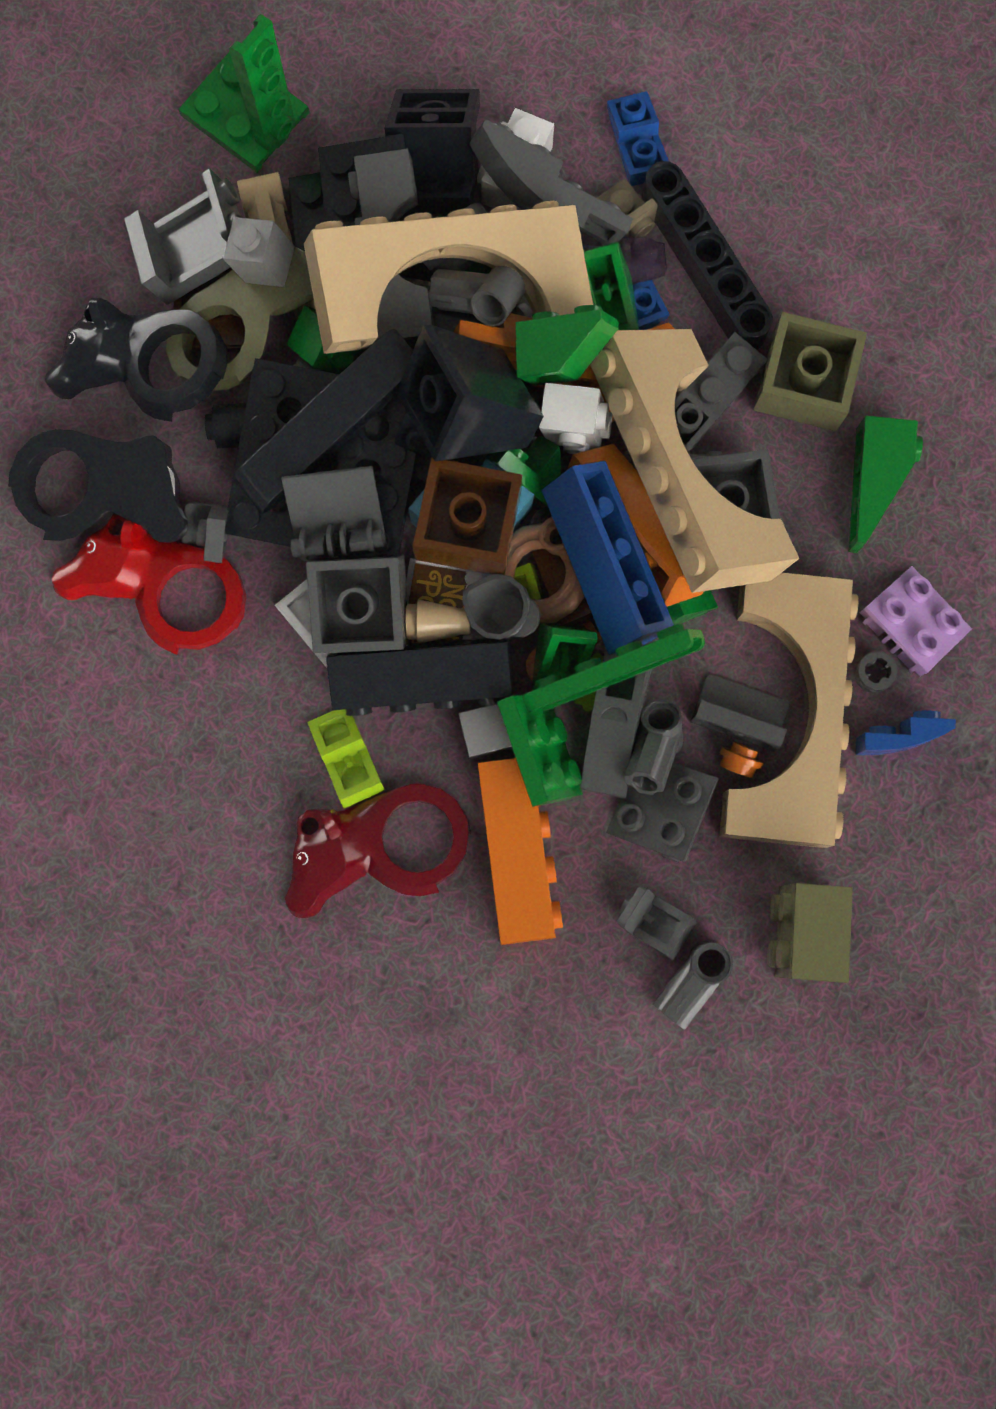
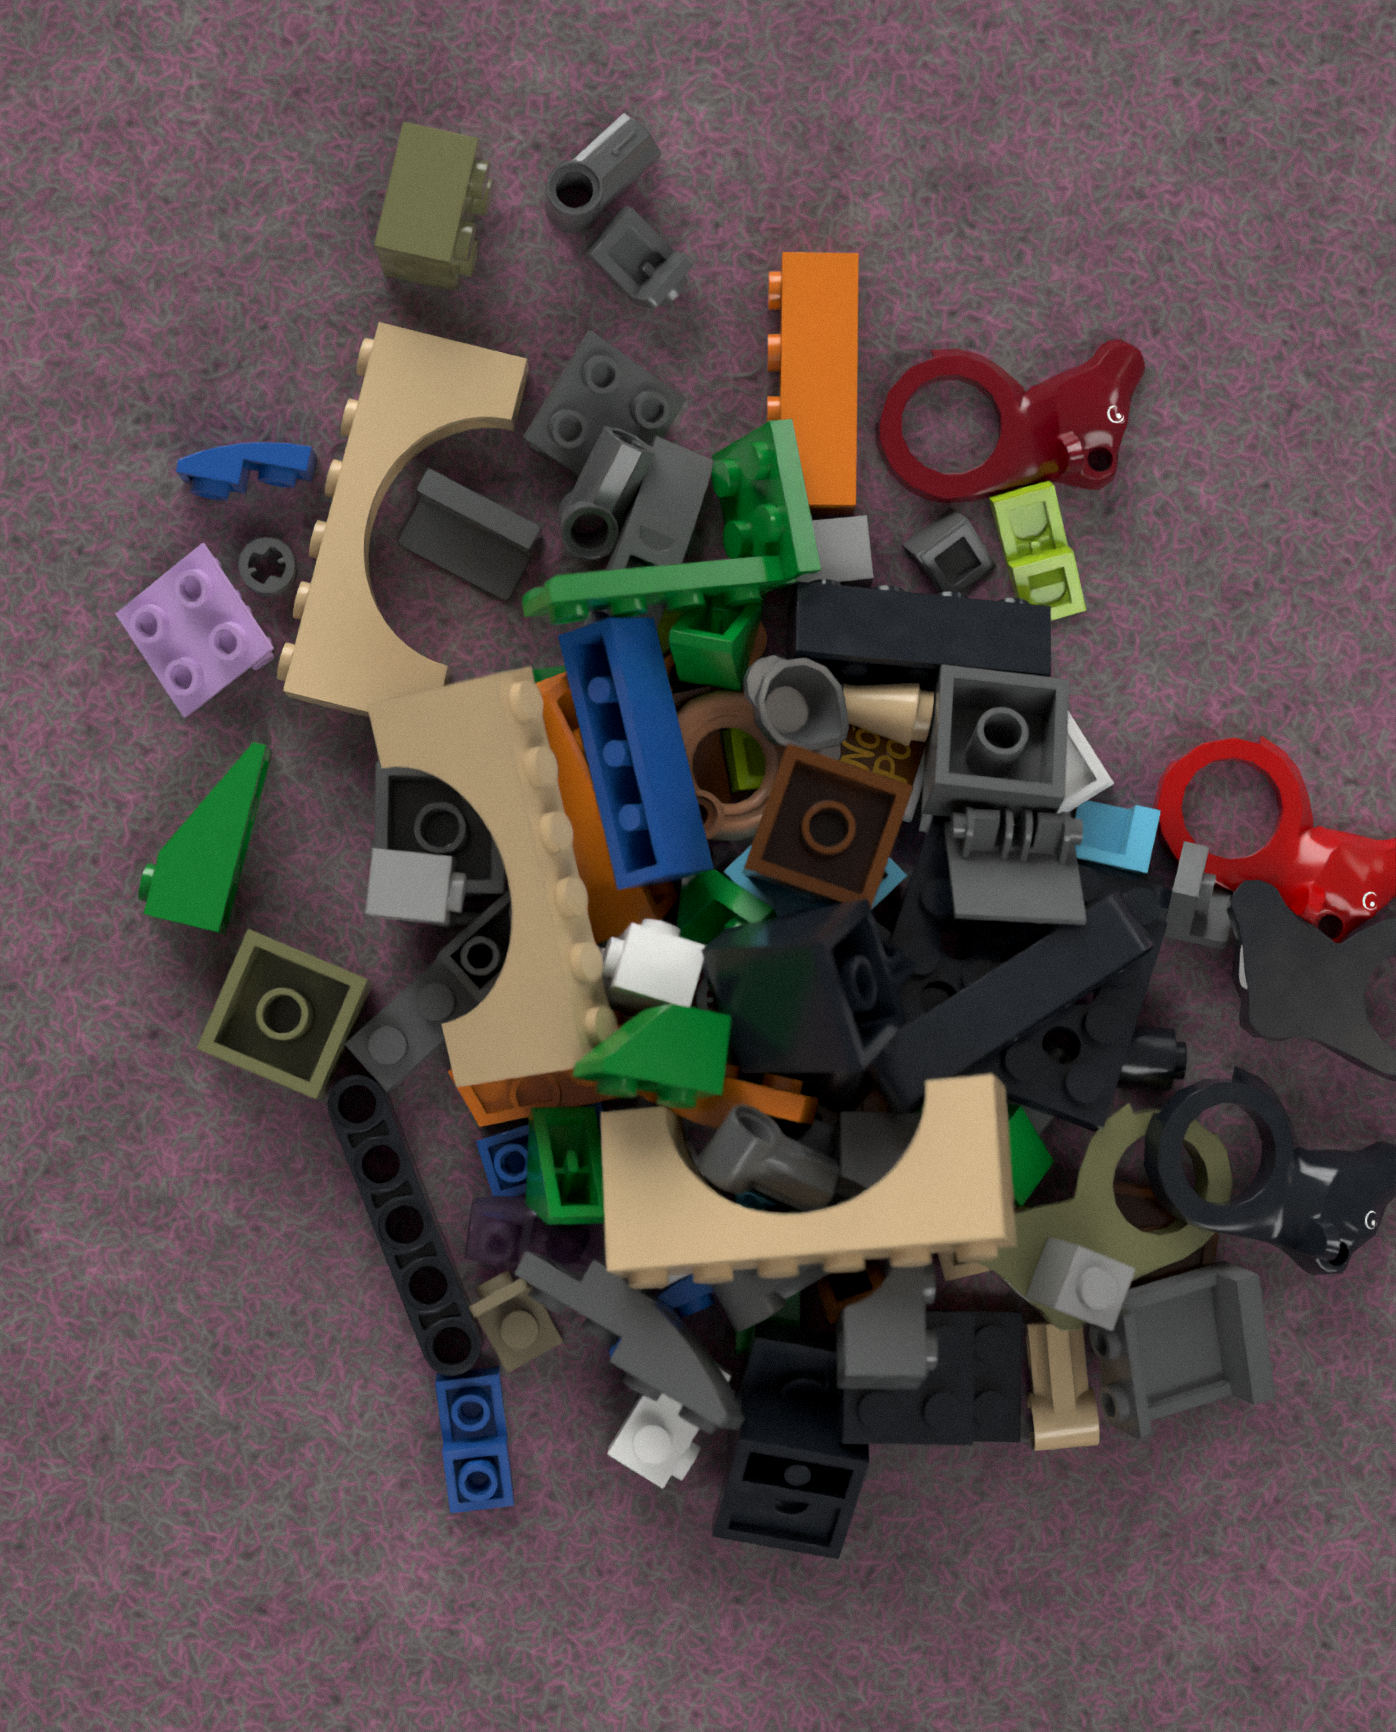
camera: 175 degrees left, 5 degrees up
(247, 99) = (1074, 1569): green bracket -> none
(269, 567) = (1117, 836): none -> medium azure panel
(407, 748) = (950, 553): none -> dark grey slope
(740, 759) = (483, 467): orange plate -> none
(743, 446) = (414, 887): none -> light grey brick

